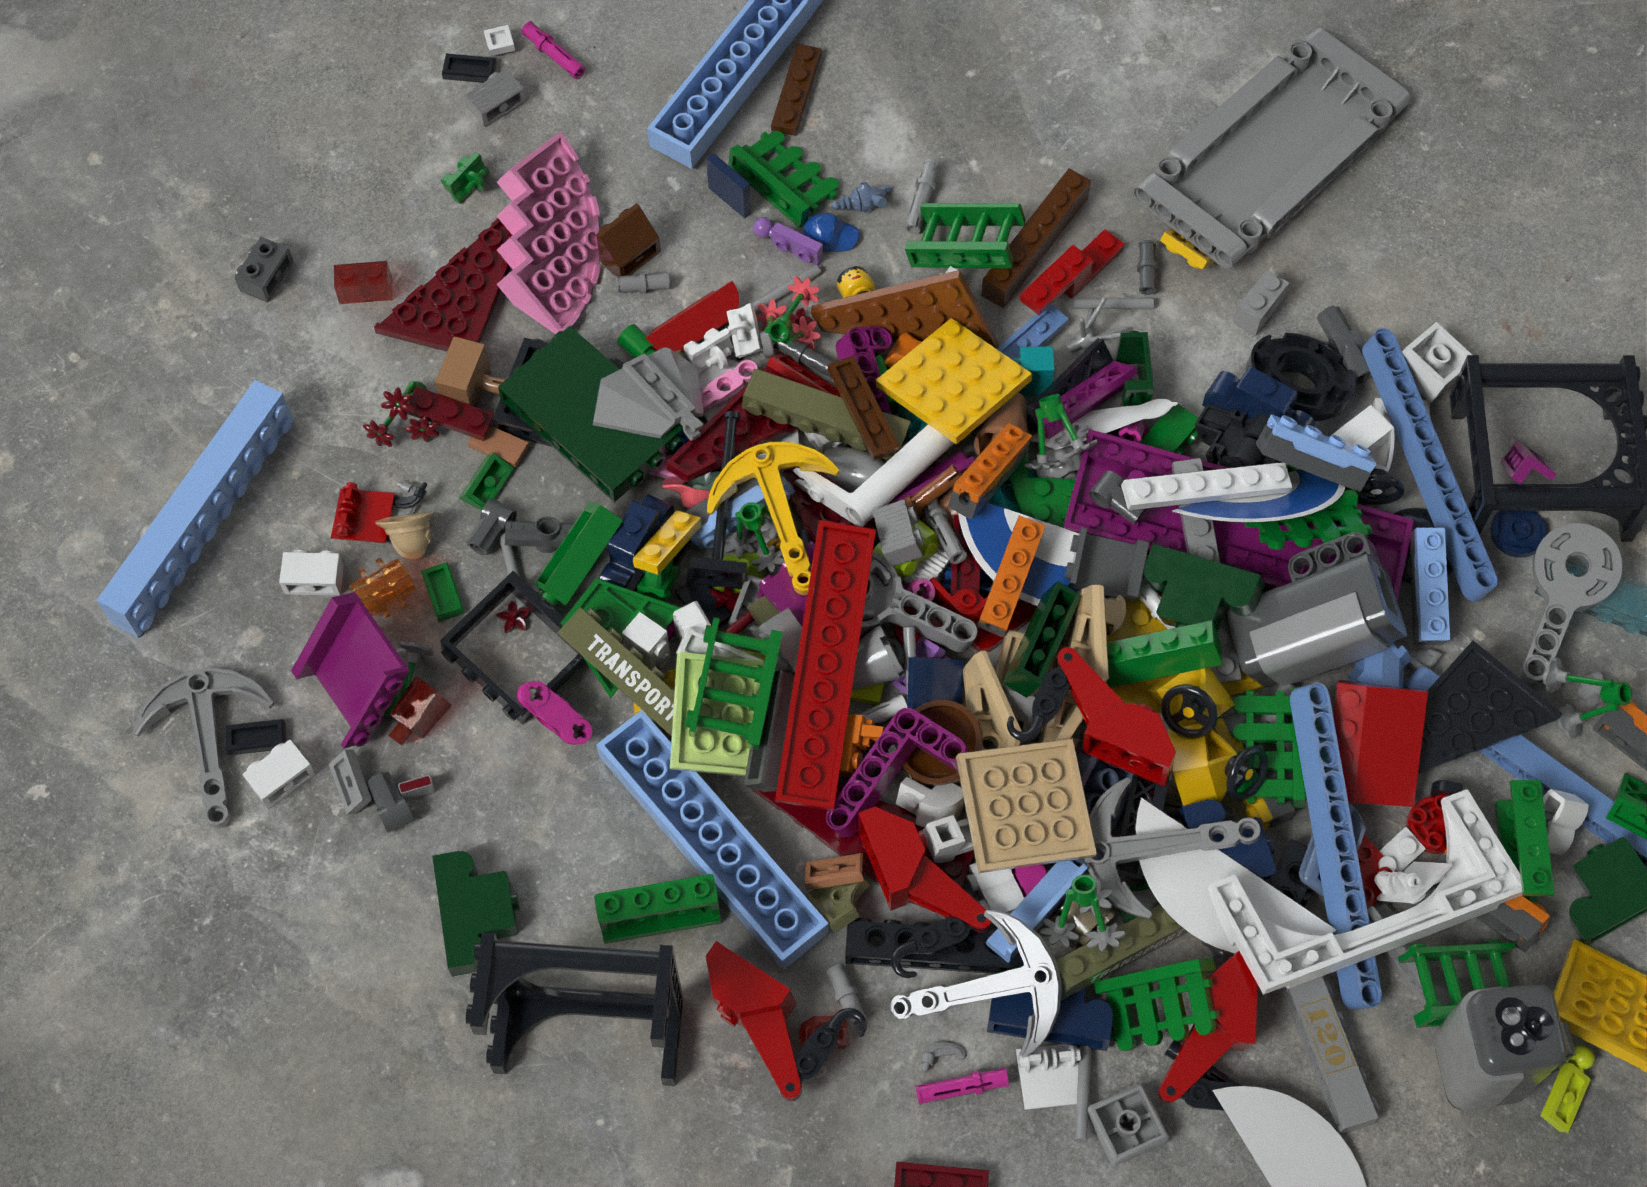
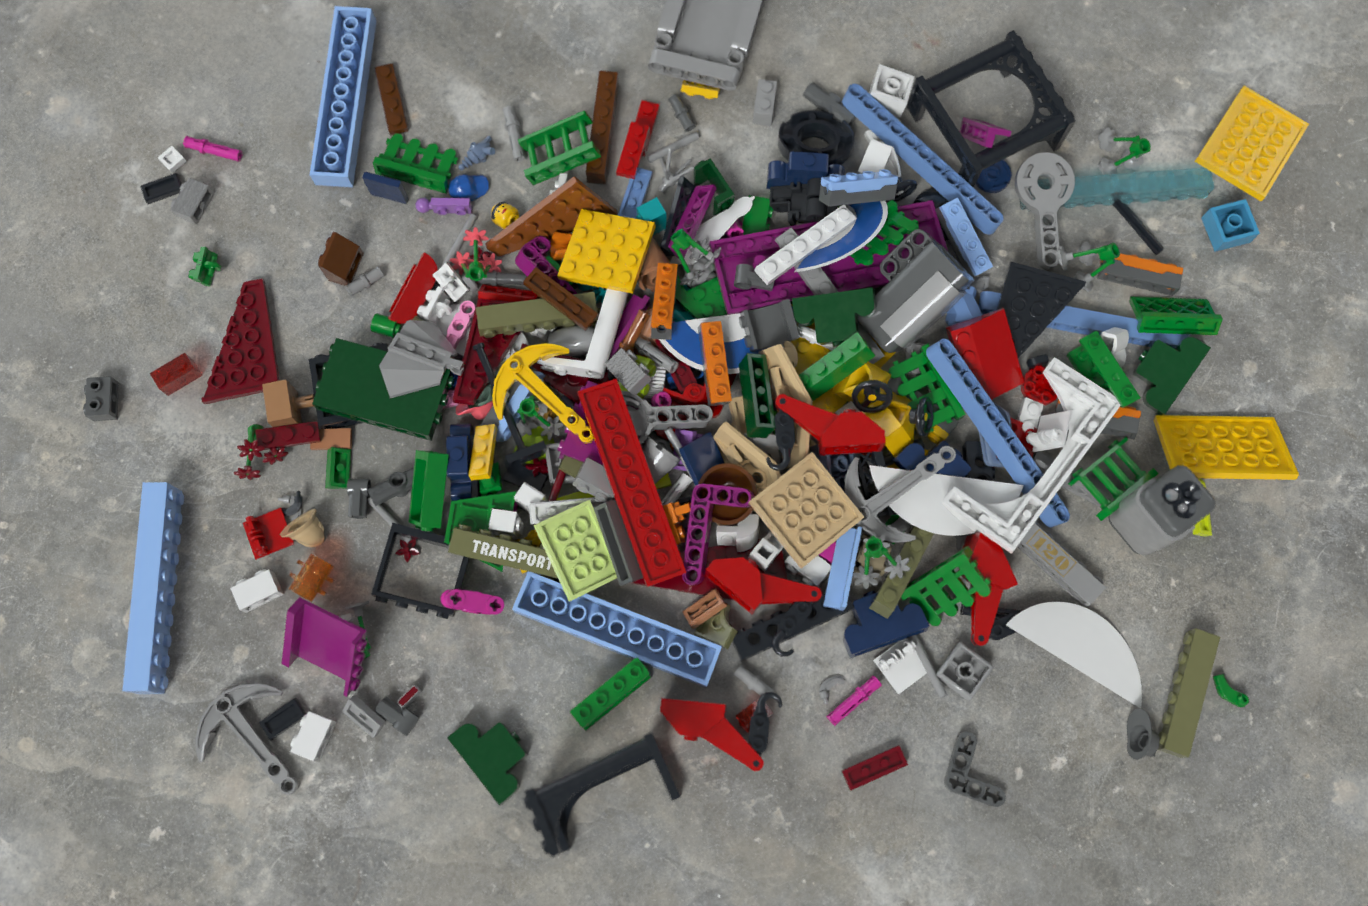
camera: 30 degrees left, 10 degrees up
(417, 711) = (382, 639): clear red torso -> none
(442, 592) = (351, 557): green tile -> none
(553, 235) = (287, 278): bright pink brick -> none
(761, 674) = (603, 530): green fence -> none
(1036, 957) = (848, 629): piece -> none

